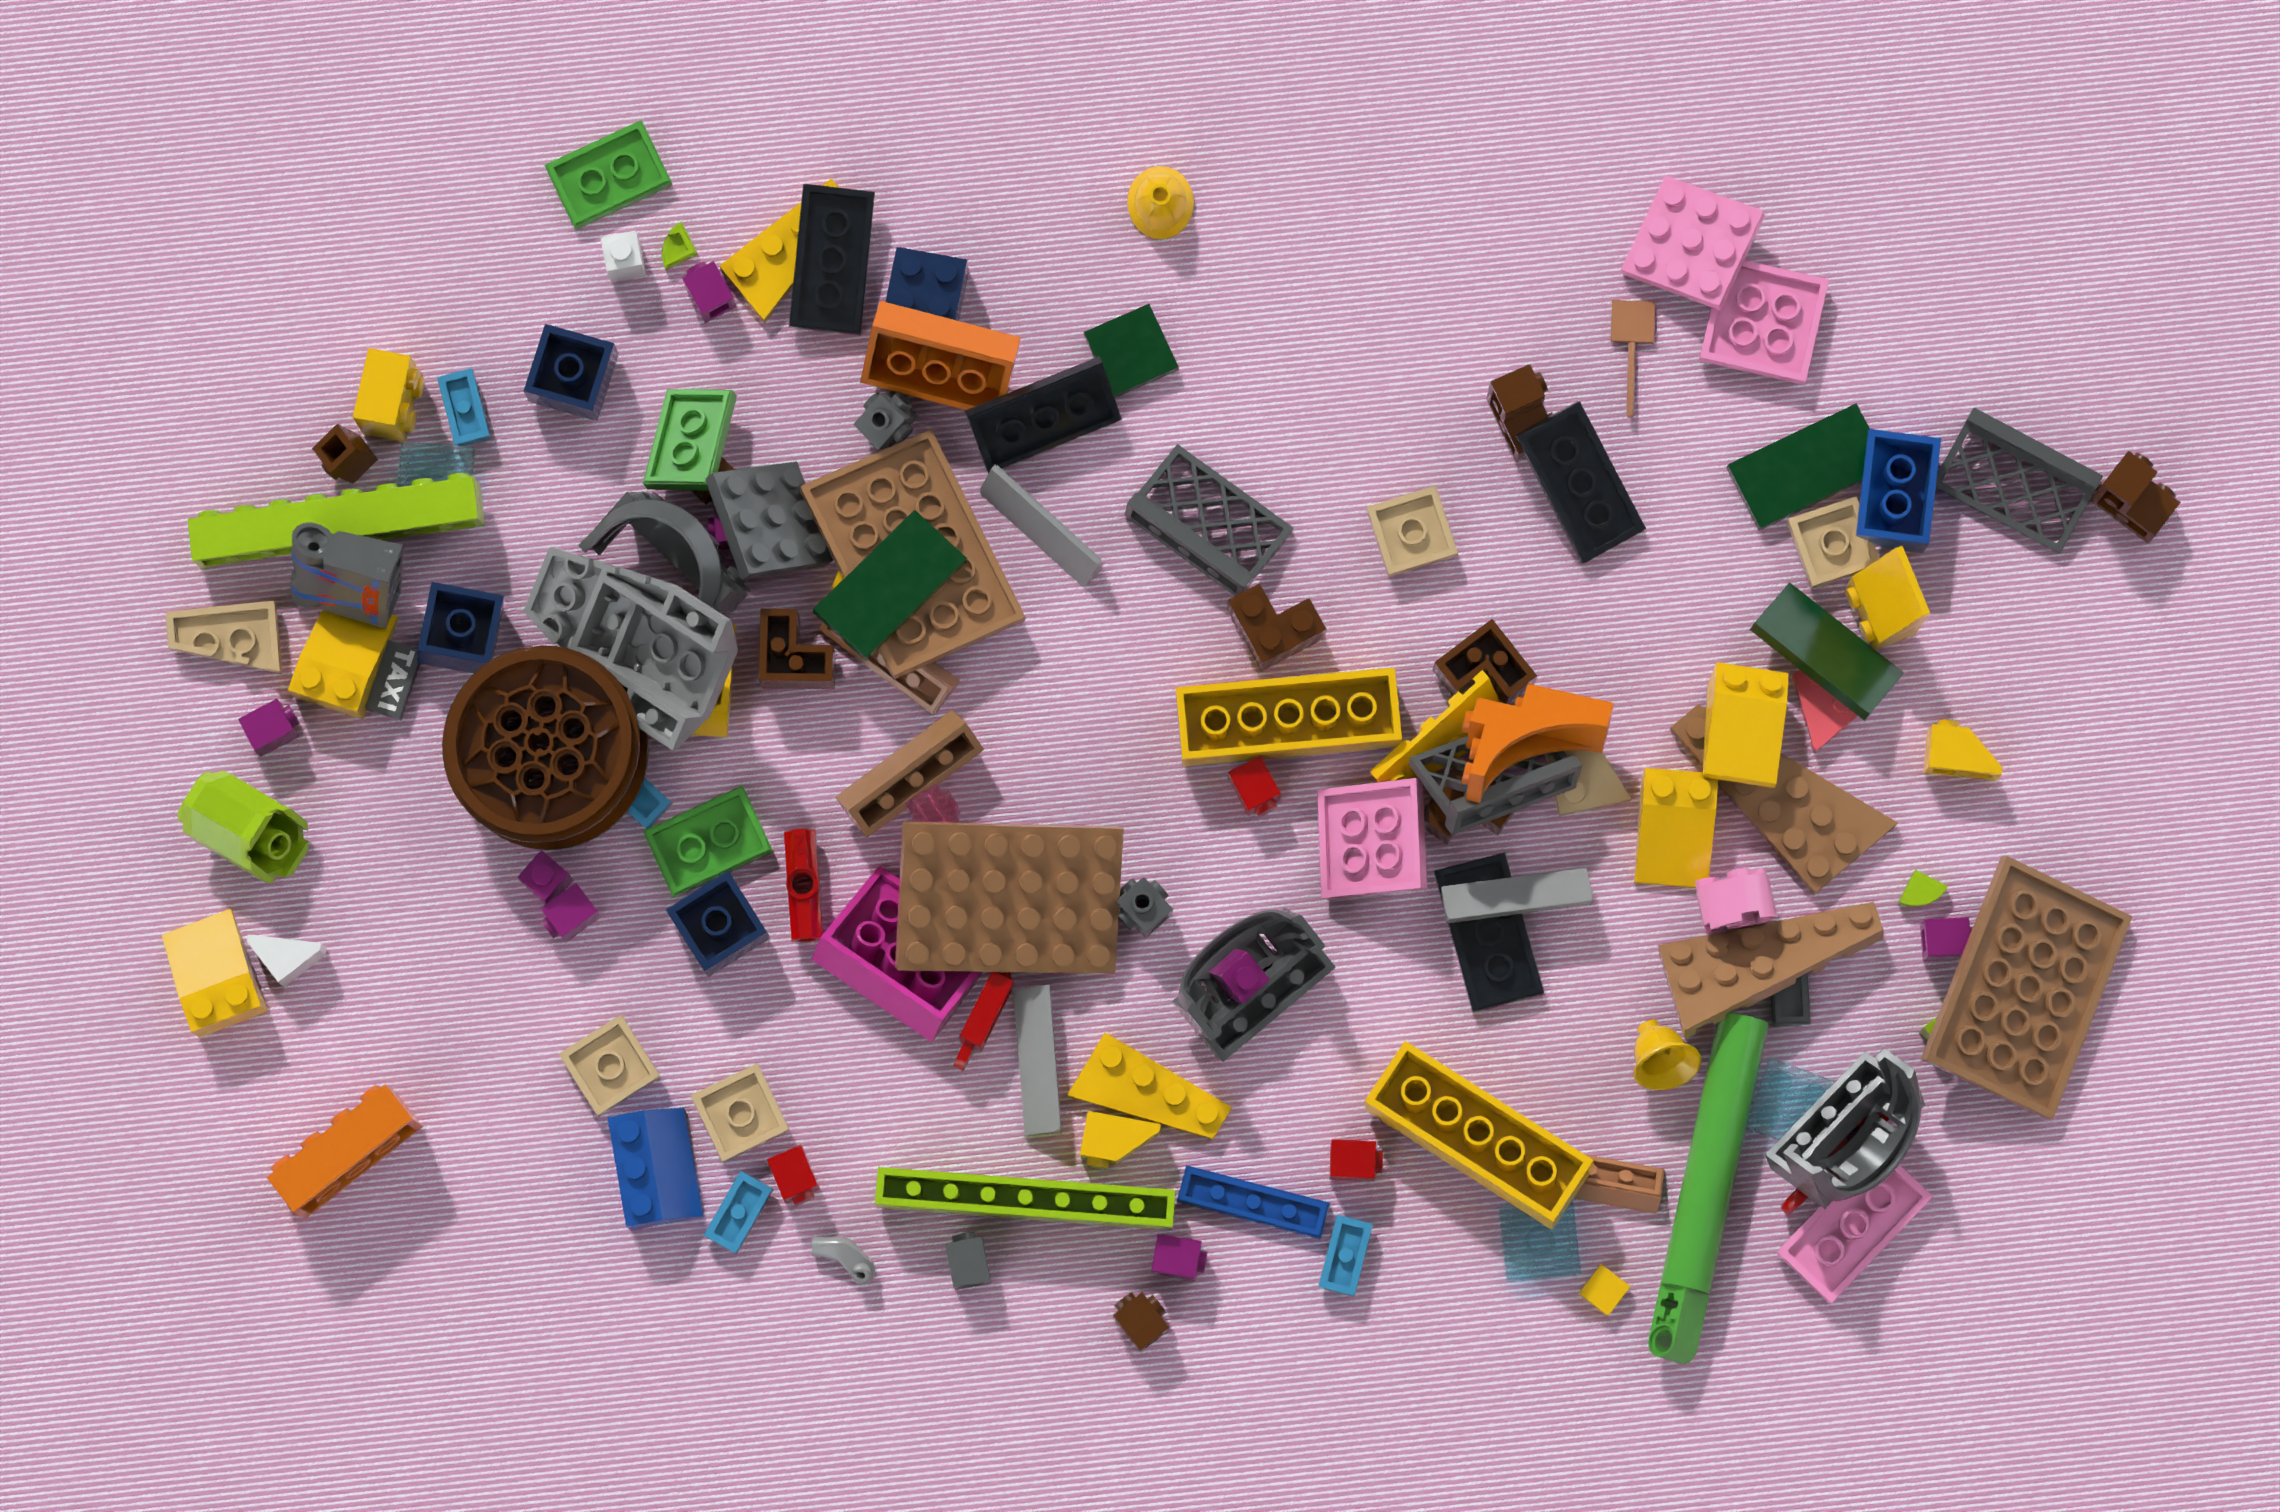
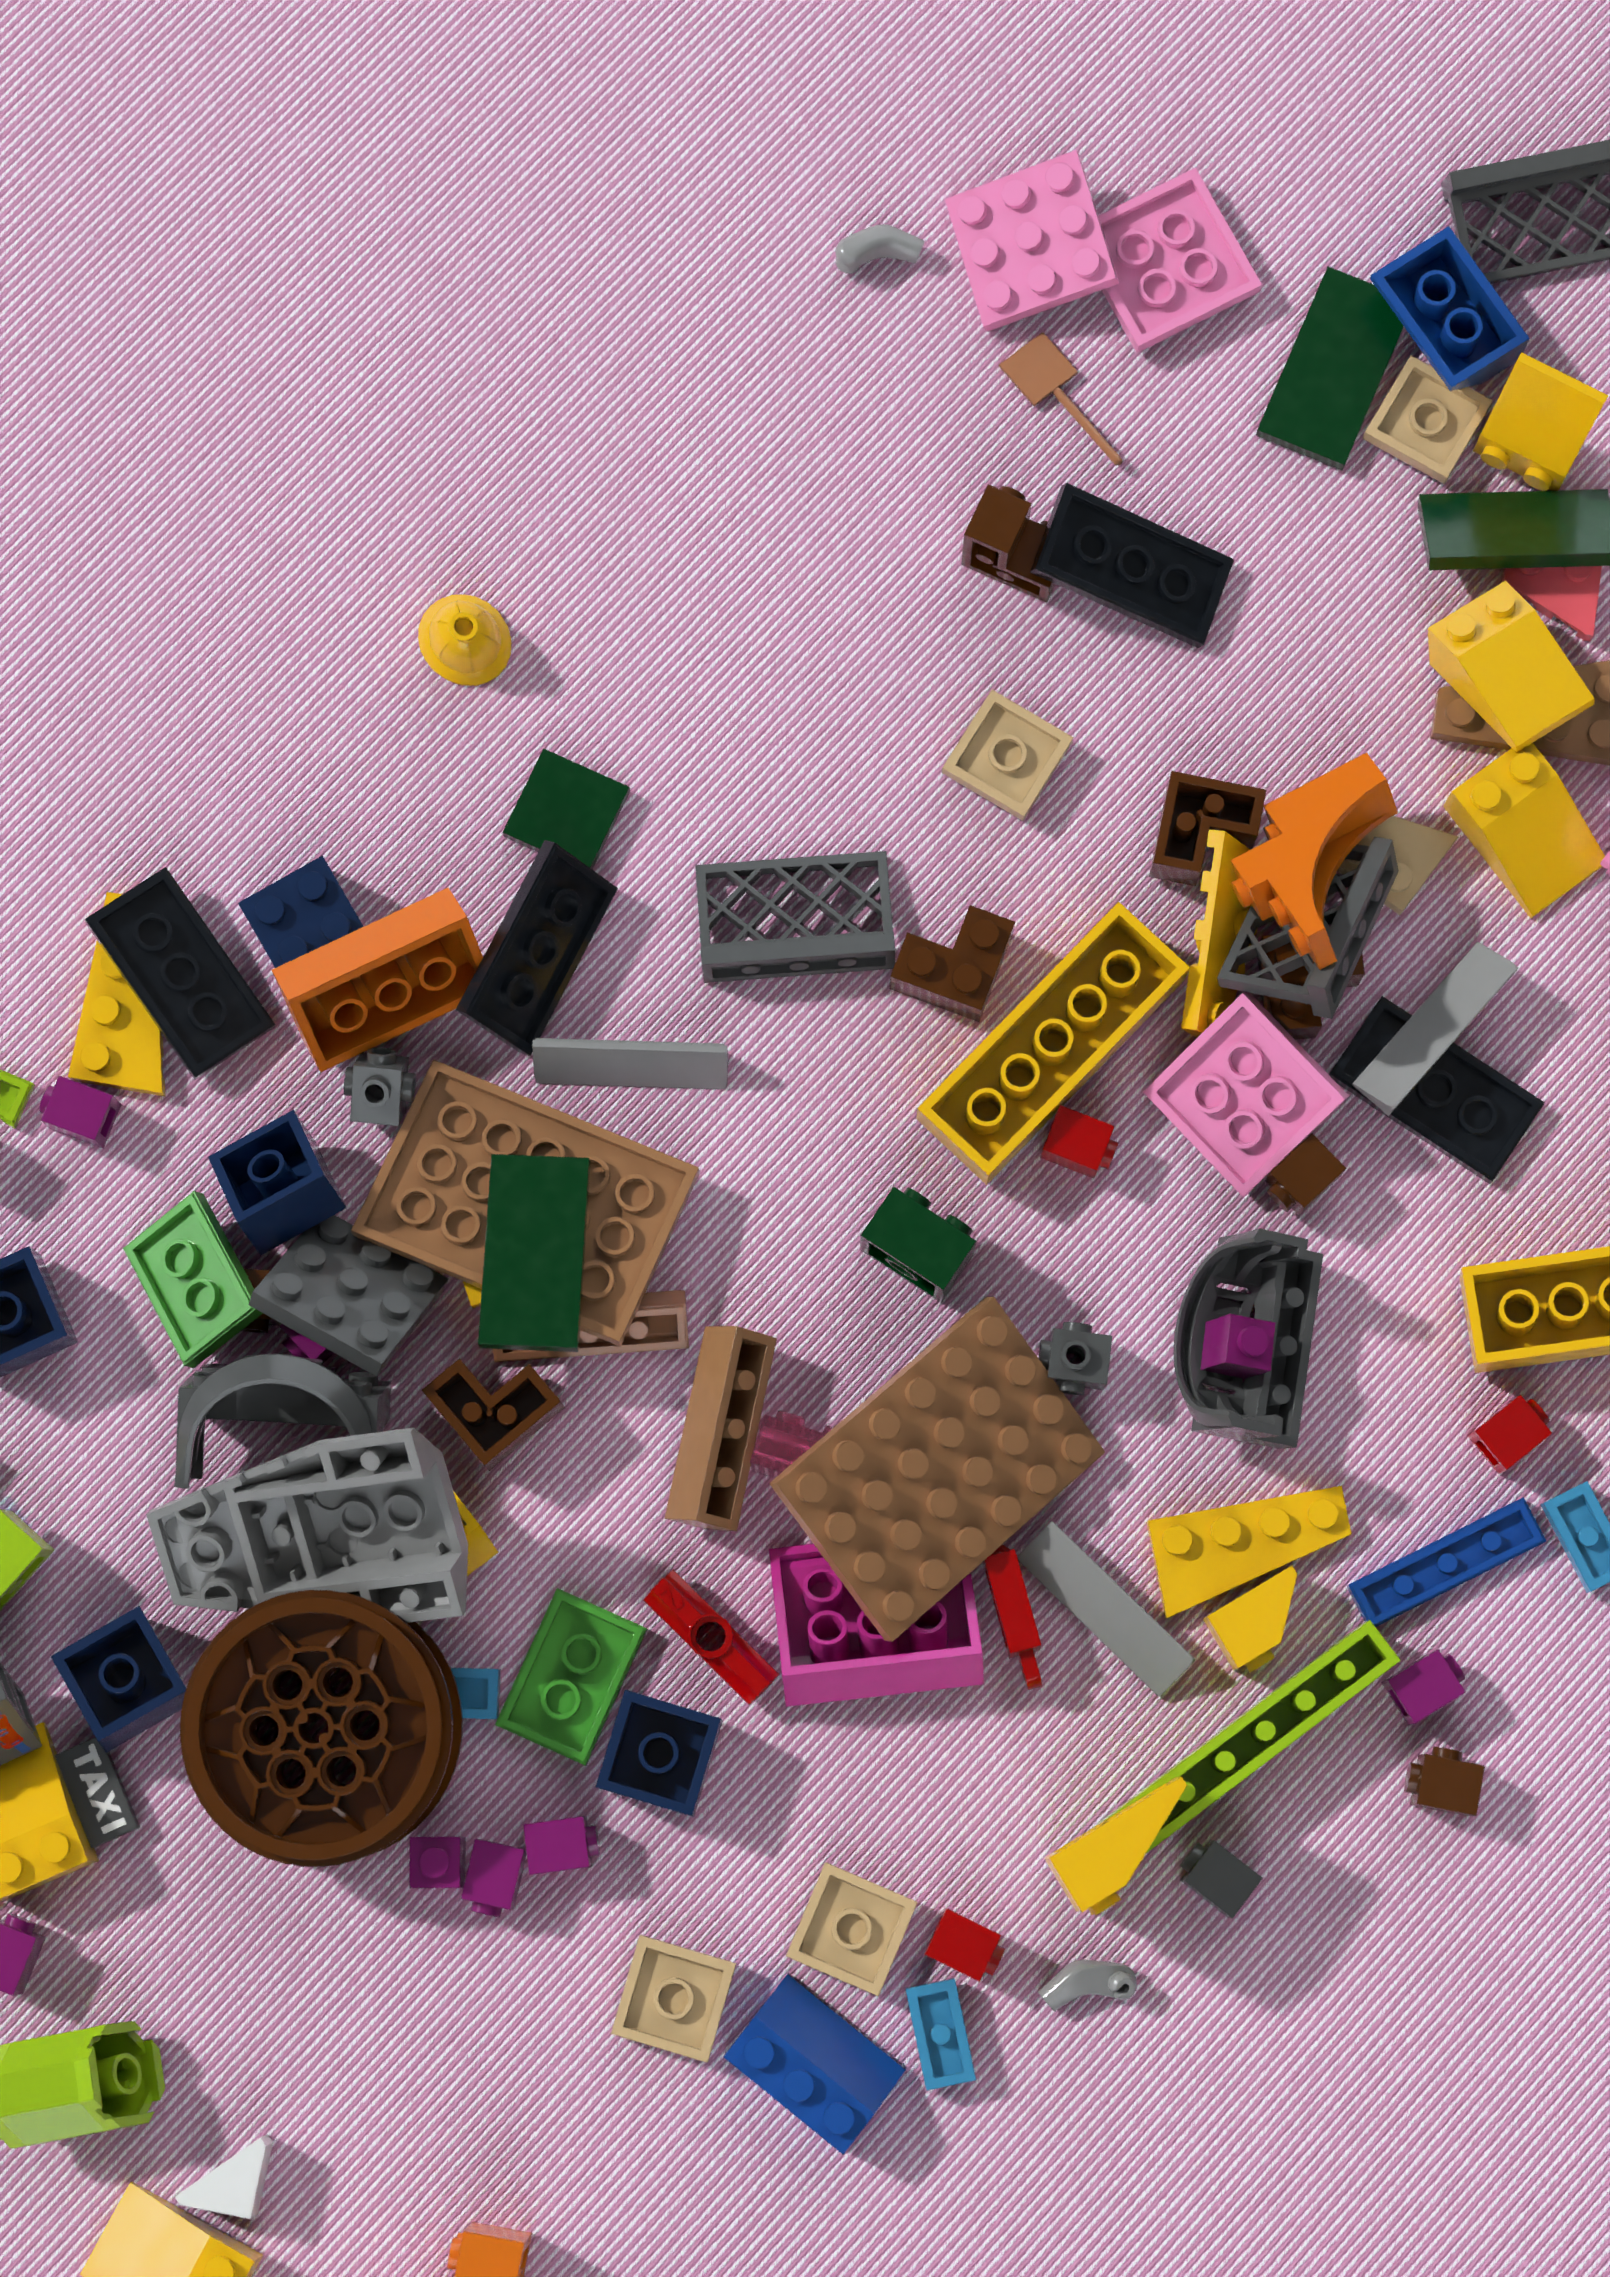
camera: 40 degrees left, 0 degrees up
(620, 927) = (560, 1845): none -> magenta brick
(782, 424) = (276, 1182): none -> dark blue brick
(912, 1185) = (1109, 1853): none -> yellow slope
(1109, 764) = (918, 1242): none -> dark green brick
(1365, 914) = (1303, 1175): none -> reddish brown brick
(1601, 168) = (876, 243): none -> light grey arm

